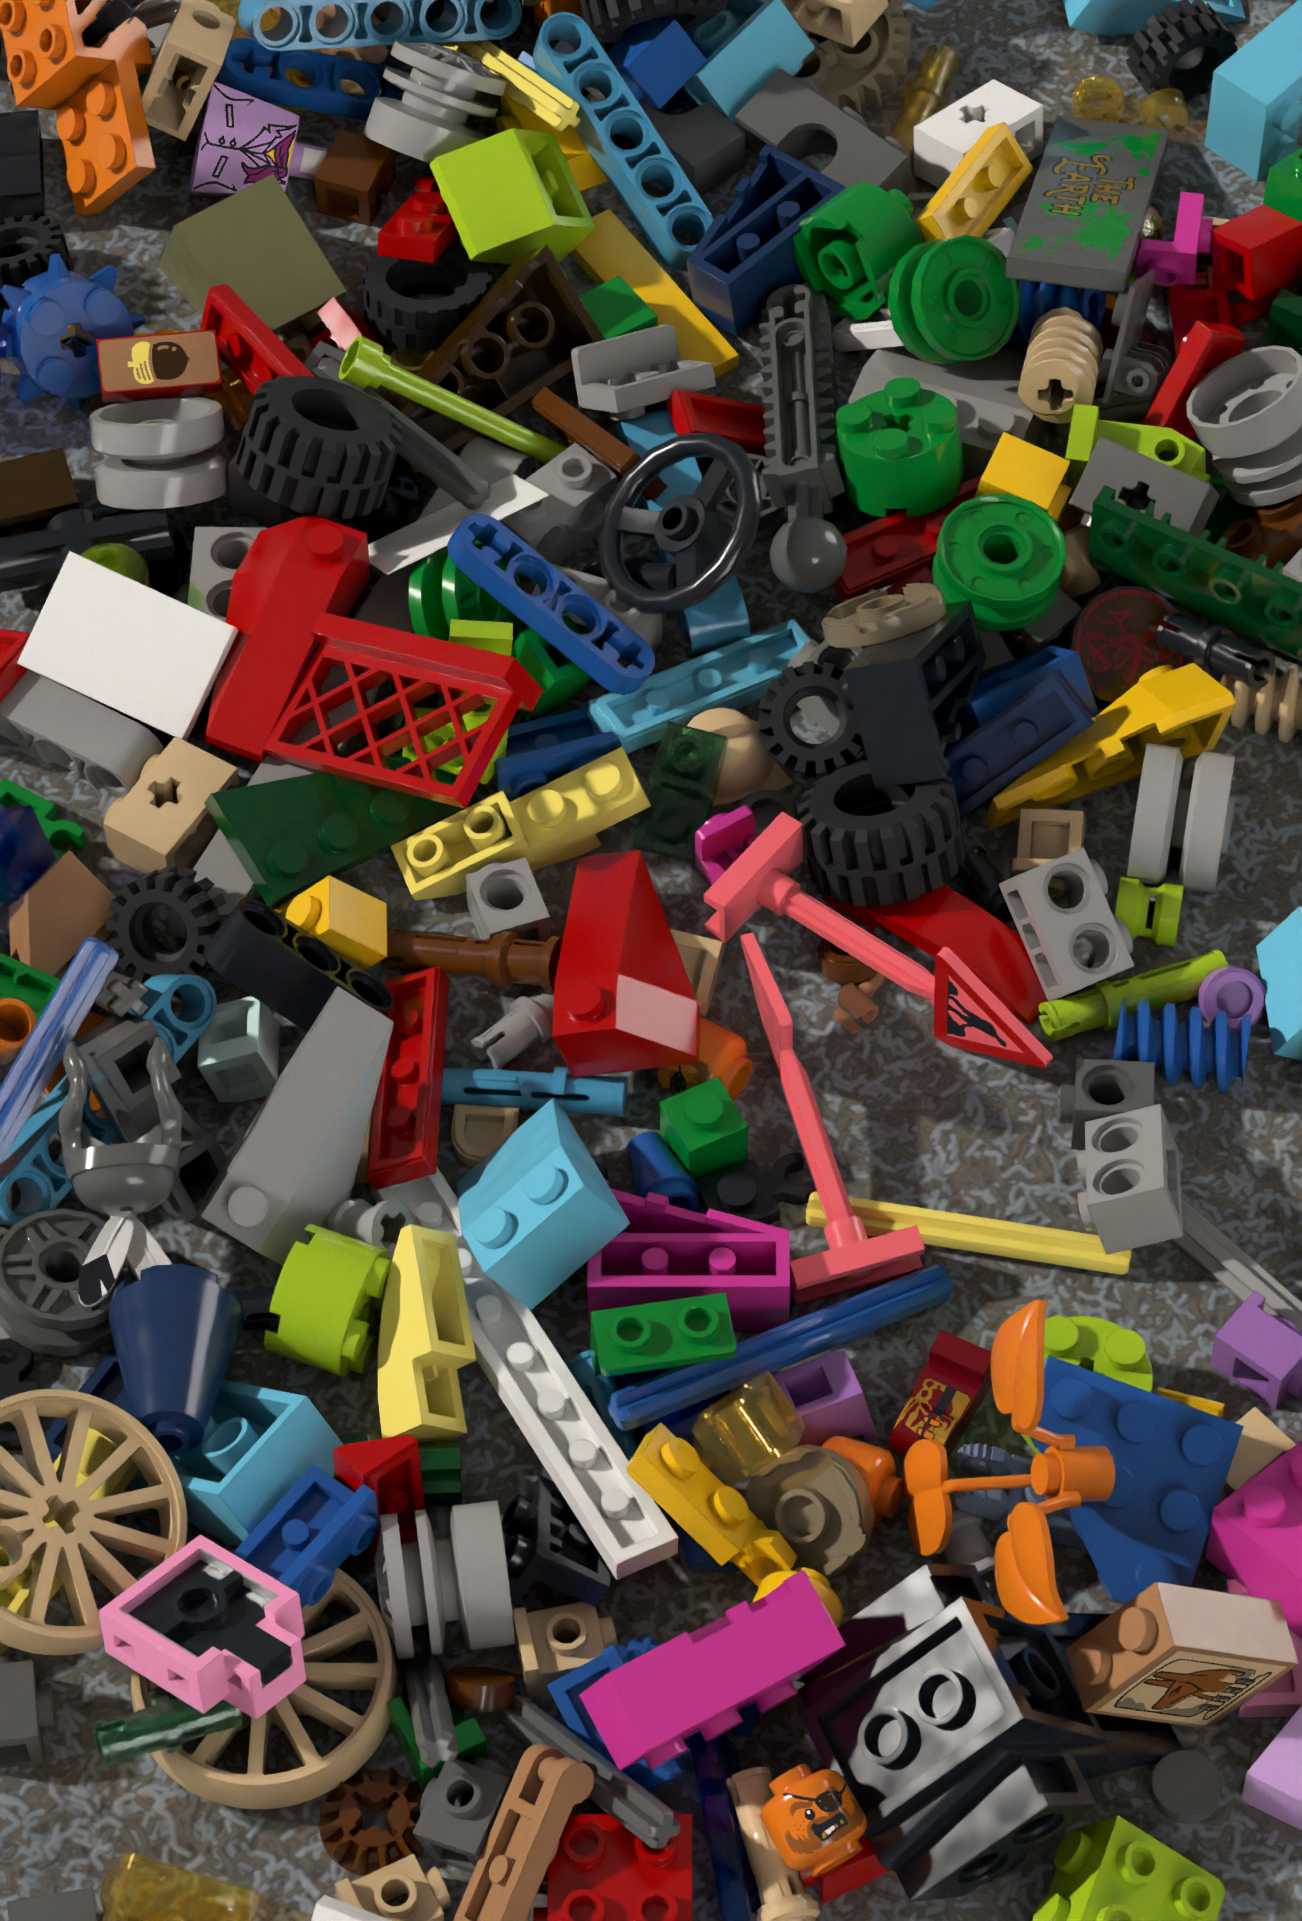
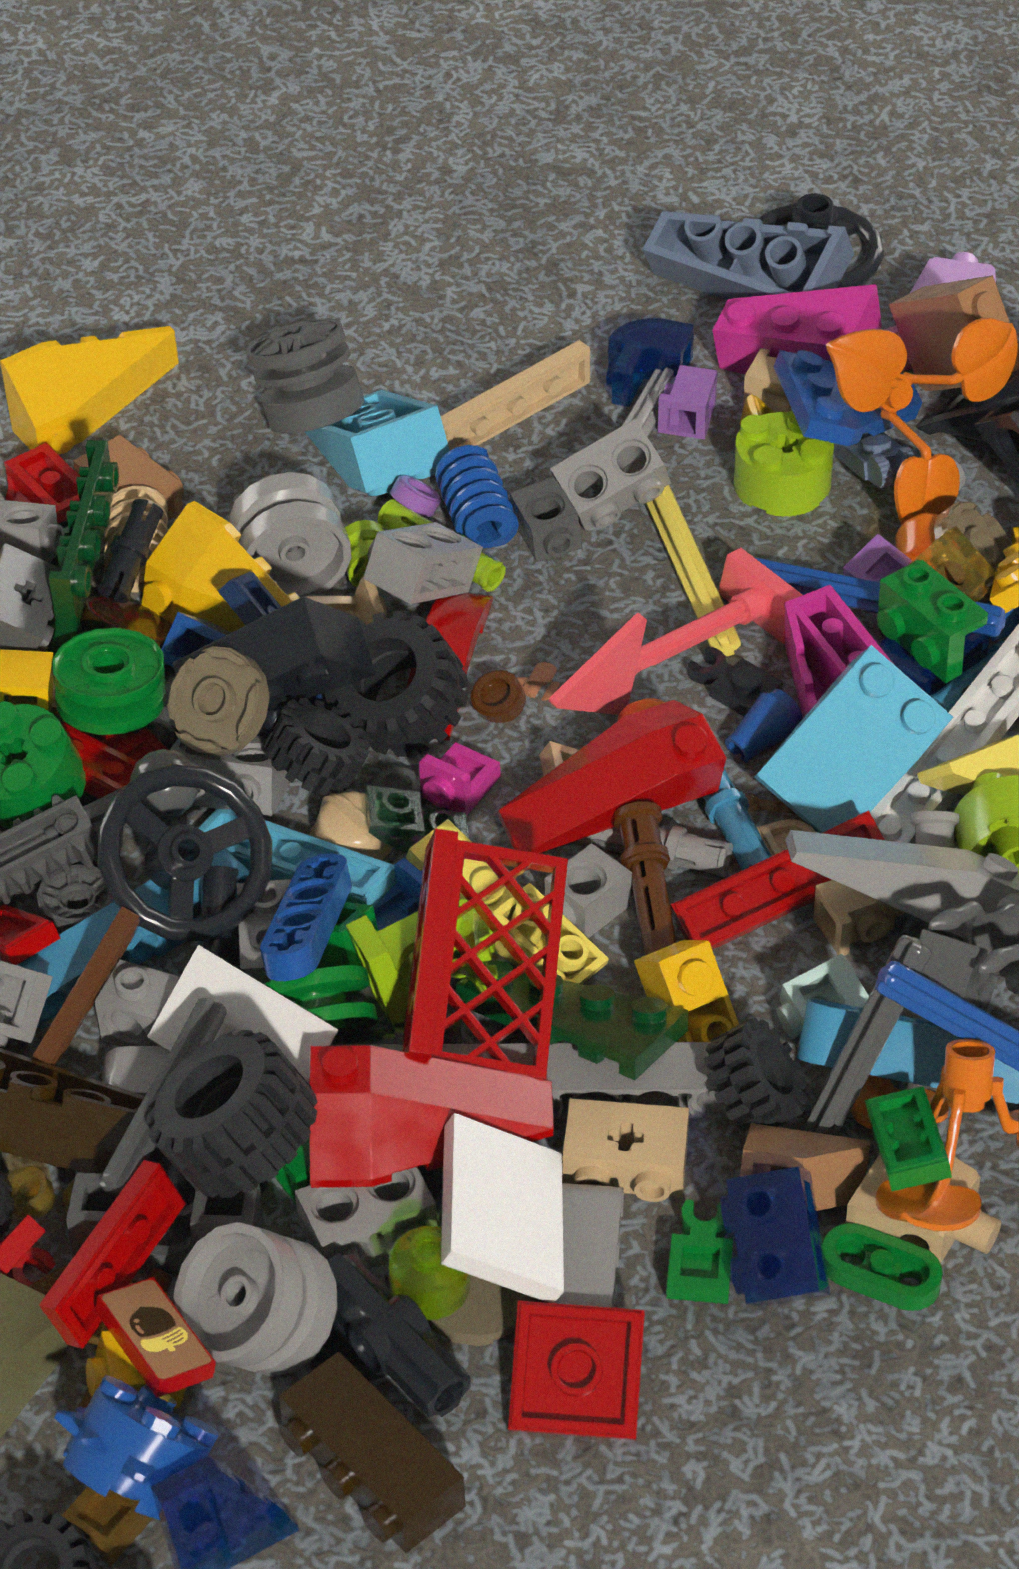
camera: 115 degrees left, 10 degrees down
(287, 965) = (753, 963): black beam -> none
(368, 366) = (117, 1113): lime piece -> none
(704, 1129) = (719, 696): green brick -> none
(944, 1395) = (833, 529): dark red leg -> none
(964, 1008) = (489, 731): coral piece -> none

